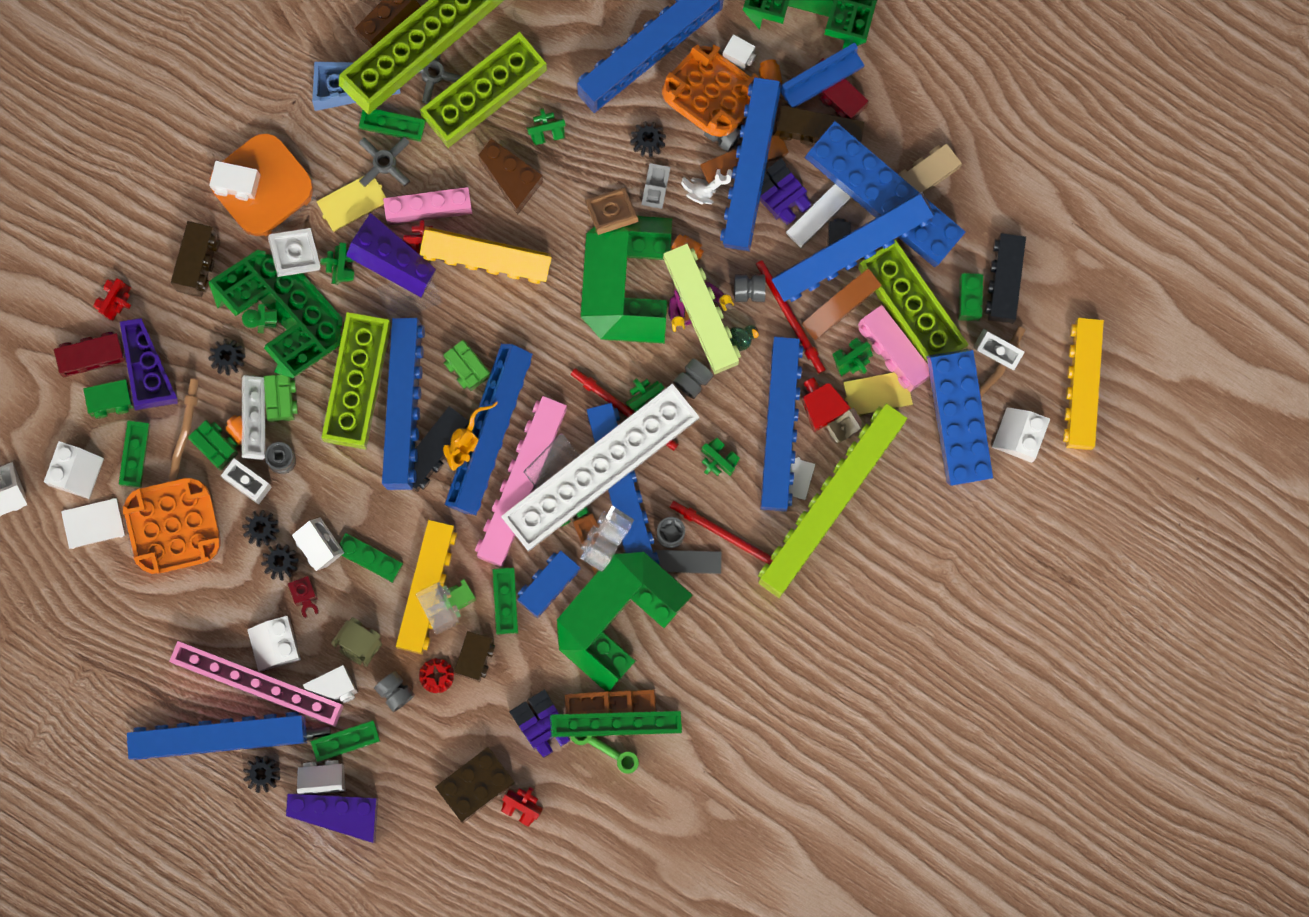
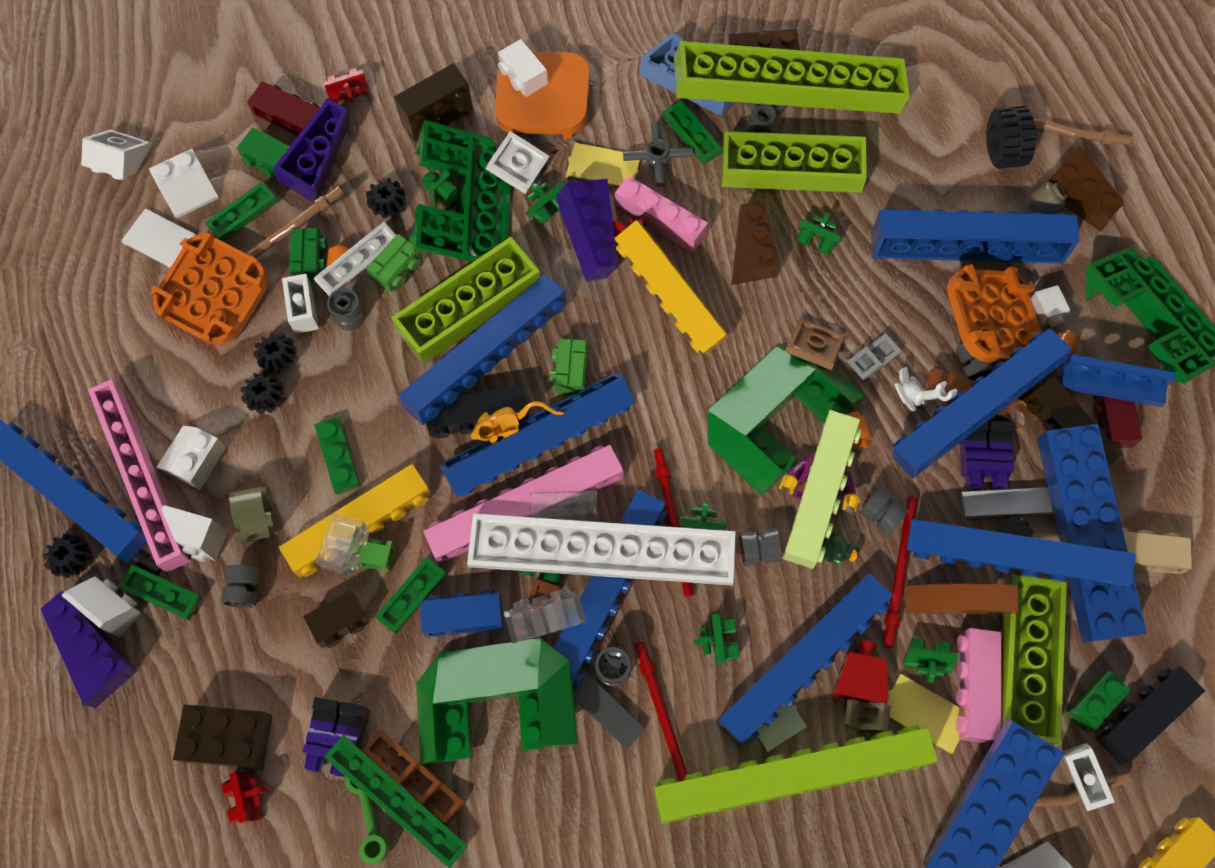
camera: 50 degrees right, 10 degrees down
(303, 594) = (253, 434): dark red brick -> none
(317, 544) = (305, 404): white brick -> none
(444, 682) = (291, 619): red gear -> none
(649, 147) = (901, 312): black gear -> none

